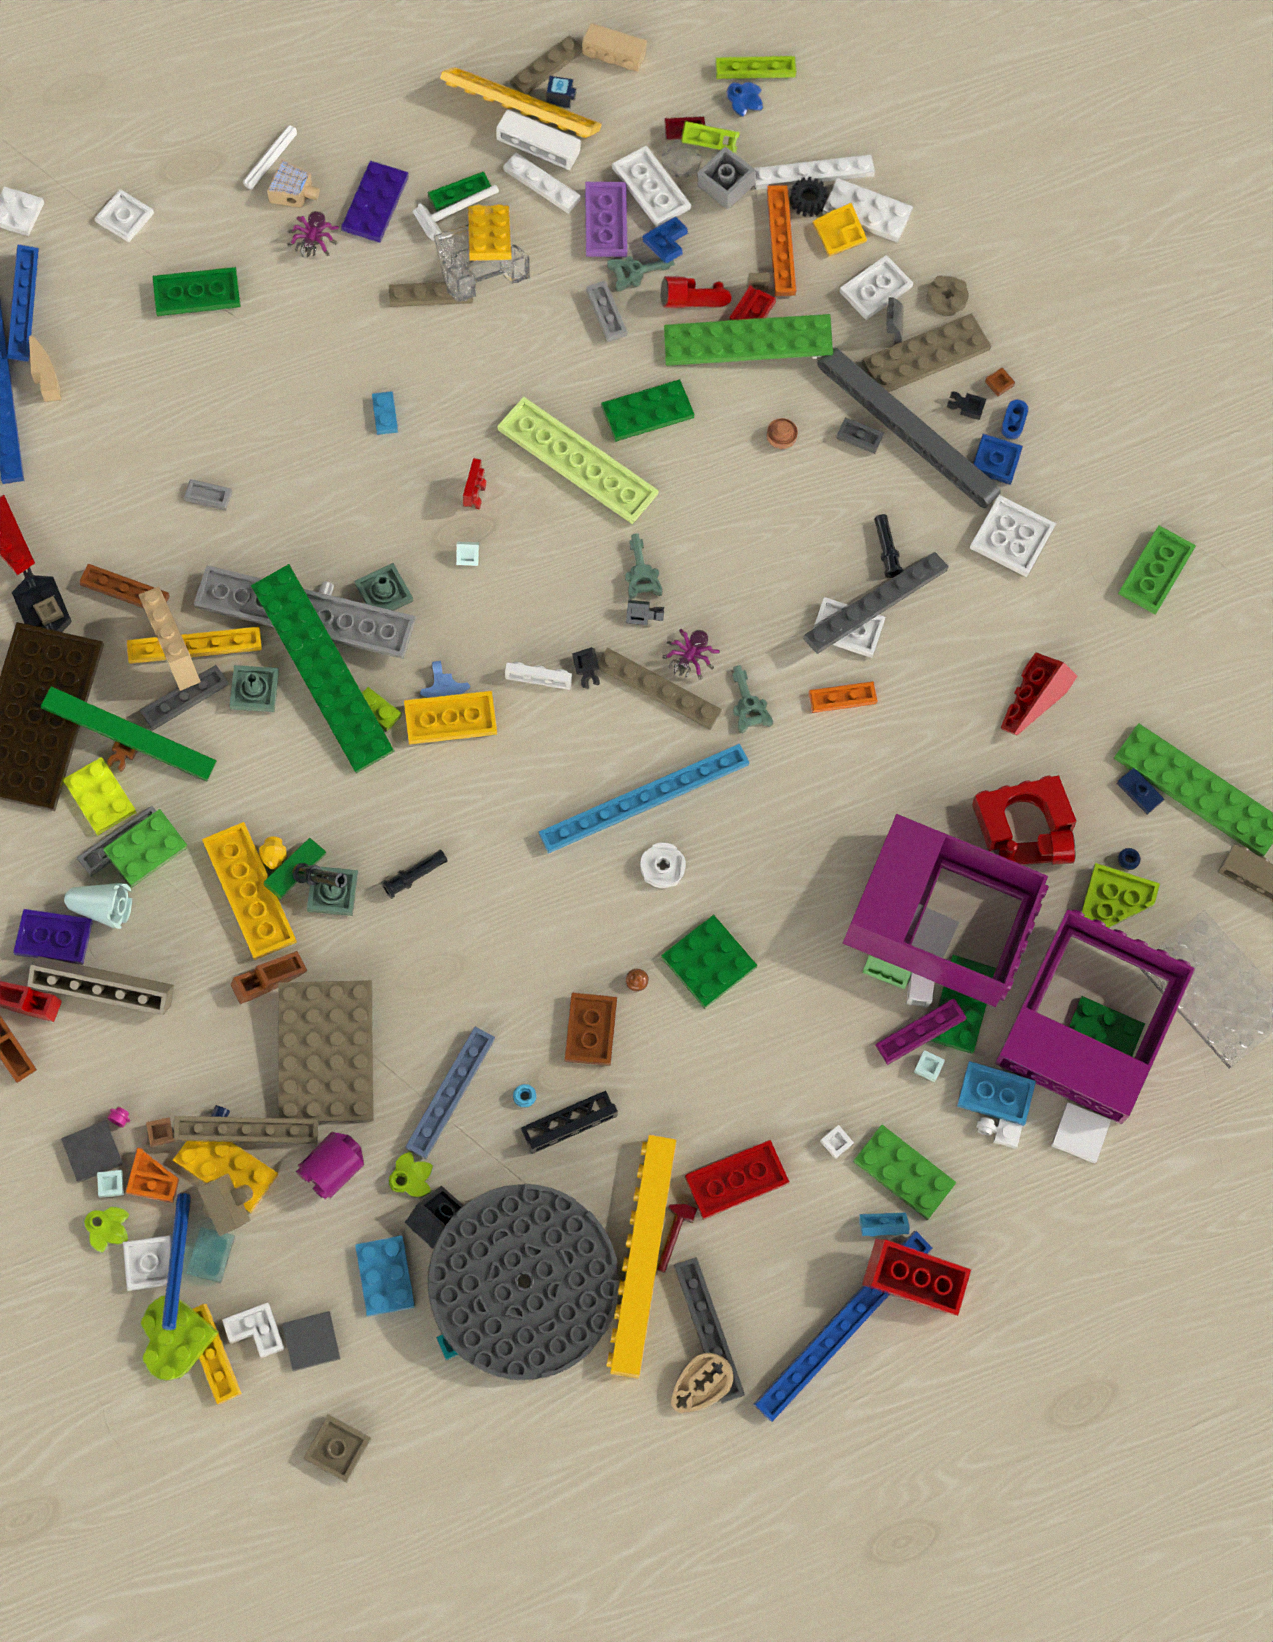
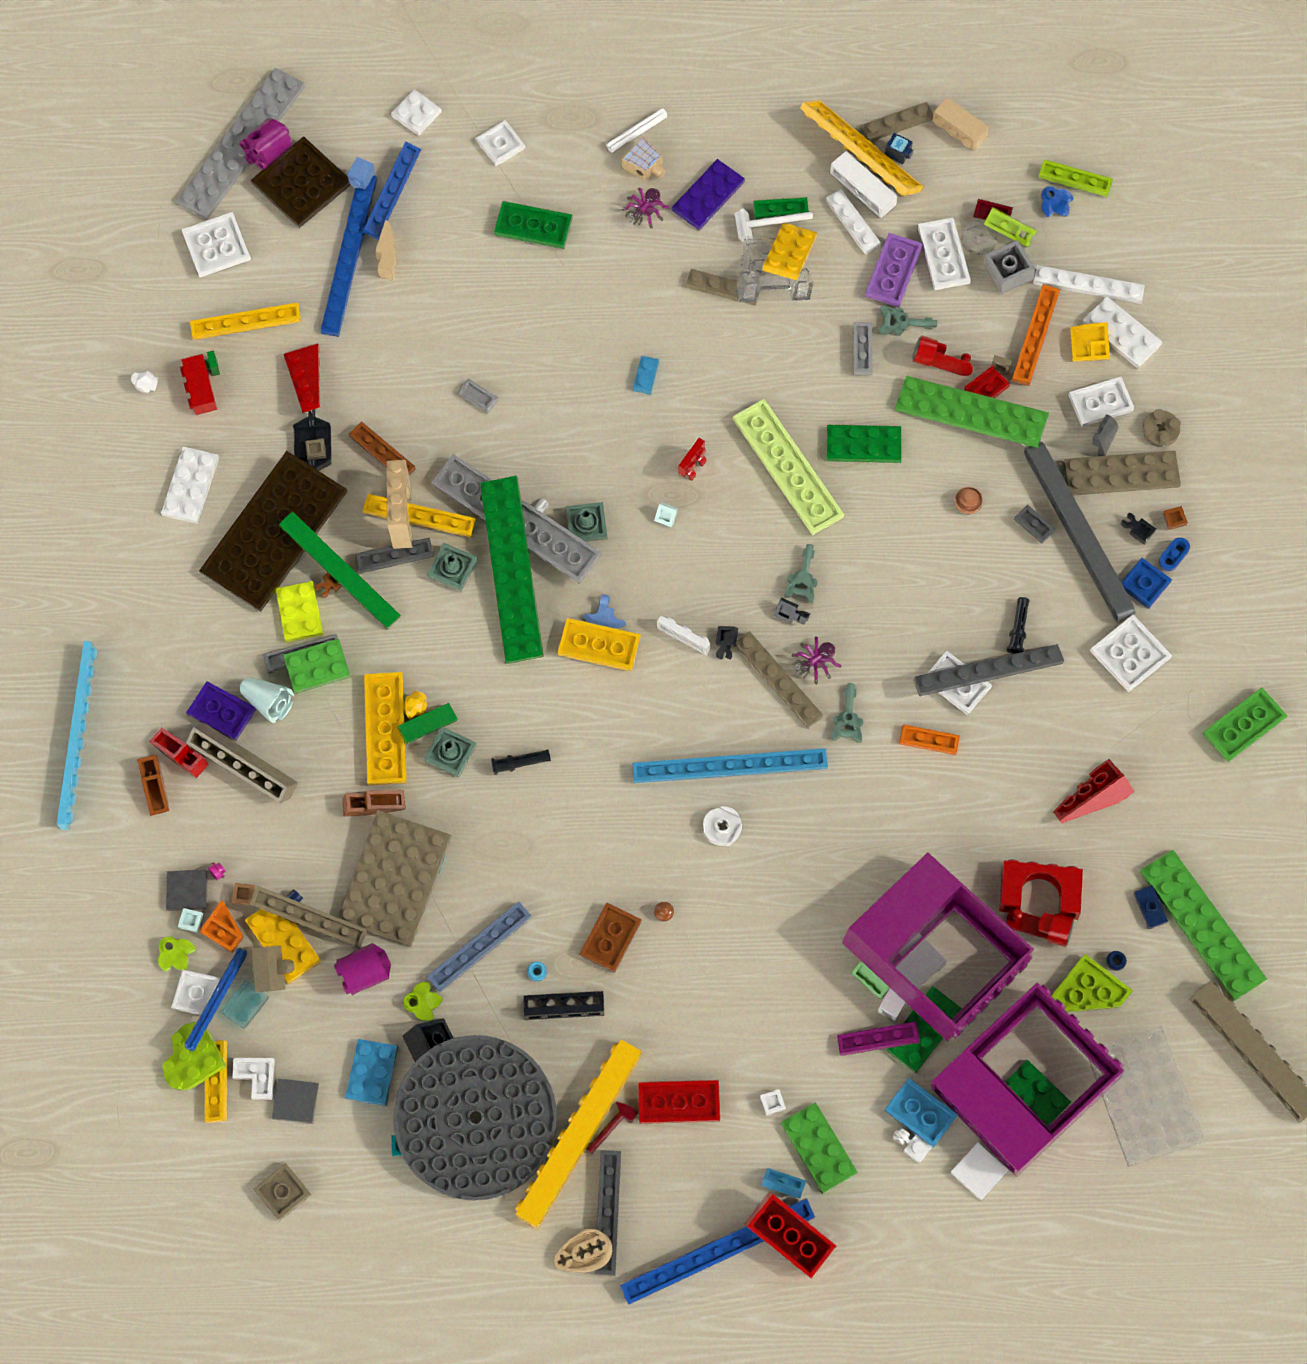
camera: 30 degrees right, 0 degrees up
(320, 876) = (439, 735): black pin -> none
(384, 711) = (547, 620): lime plate -> none
(663, 238) = (934, 301): blue plate -> none
(709, 961) = (729, 918): green plate -> none
(812, 187) = (1079, 296): black tyre -> none
(929, 1066) = (874, 1069): light aqua plate -> none

